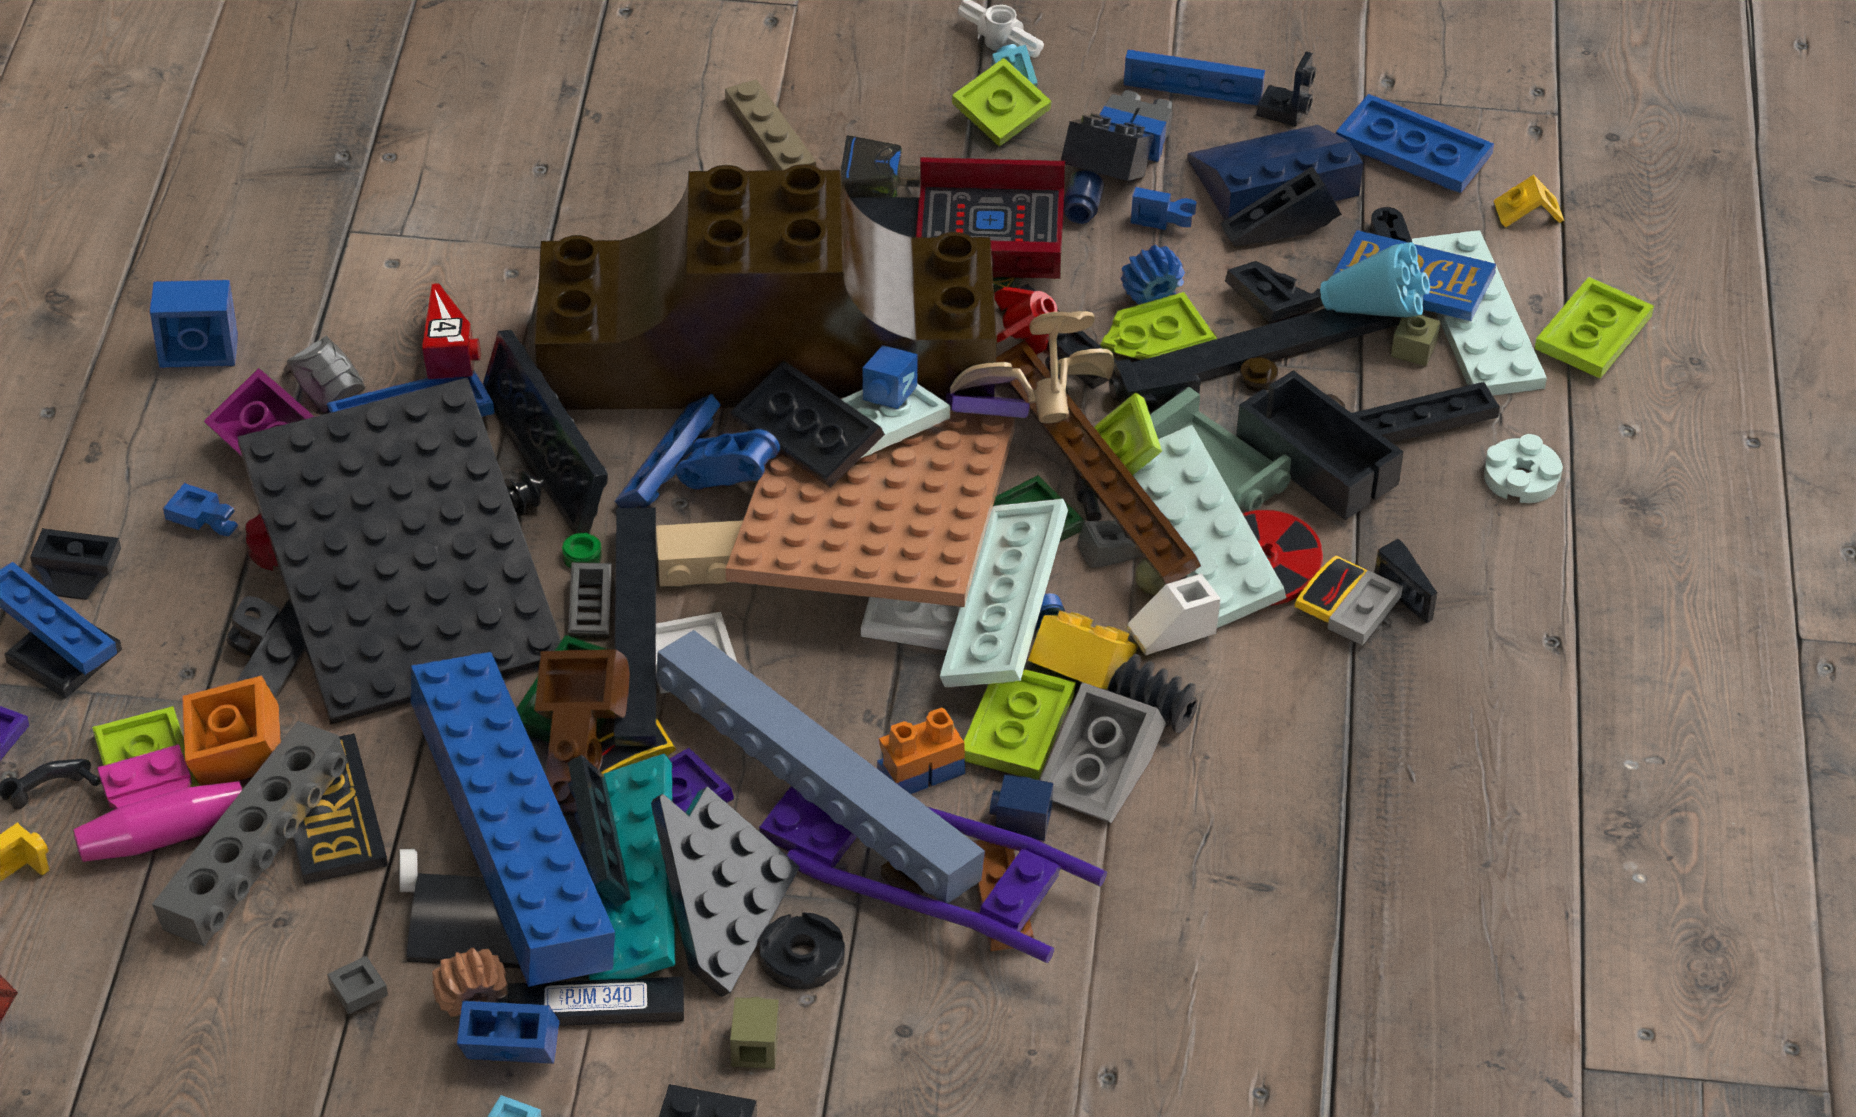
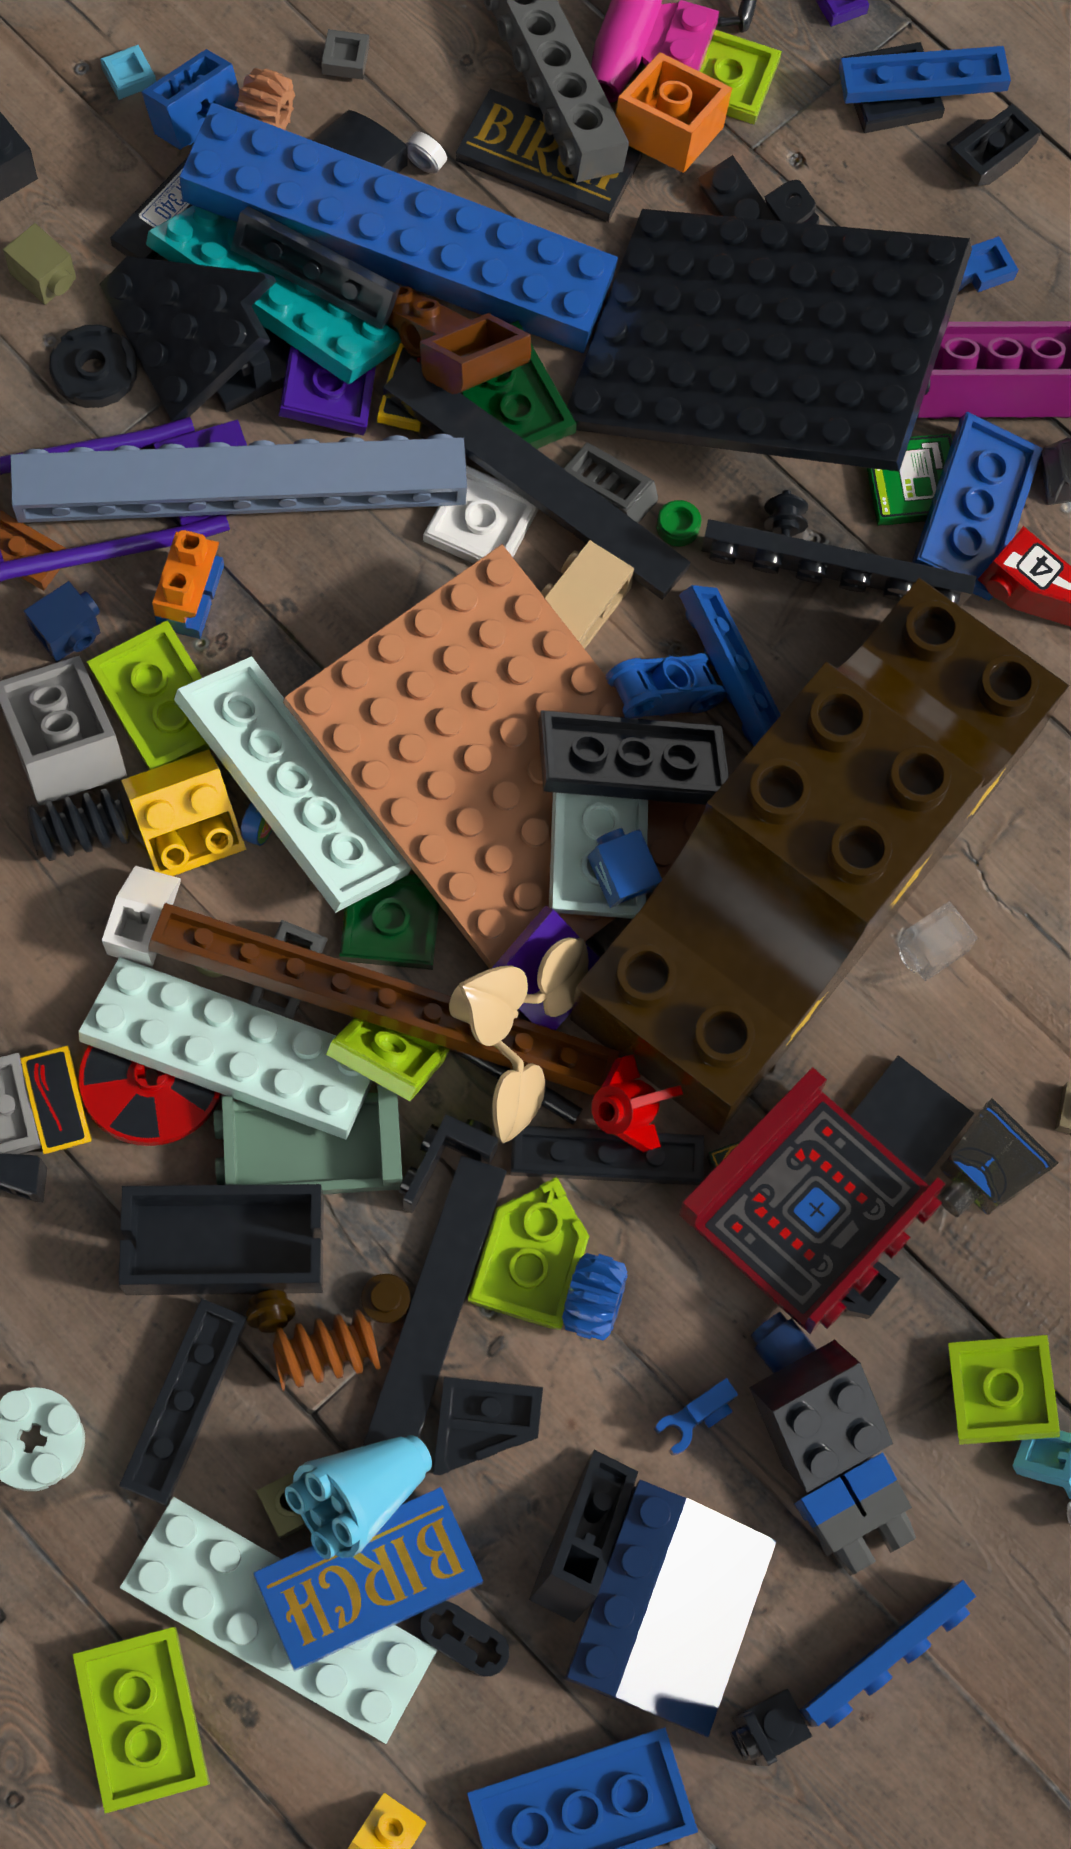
camera: 125 degrees right, 25 degrees up
(1321, 372) = (324, 1349): none -> dark orange piece

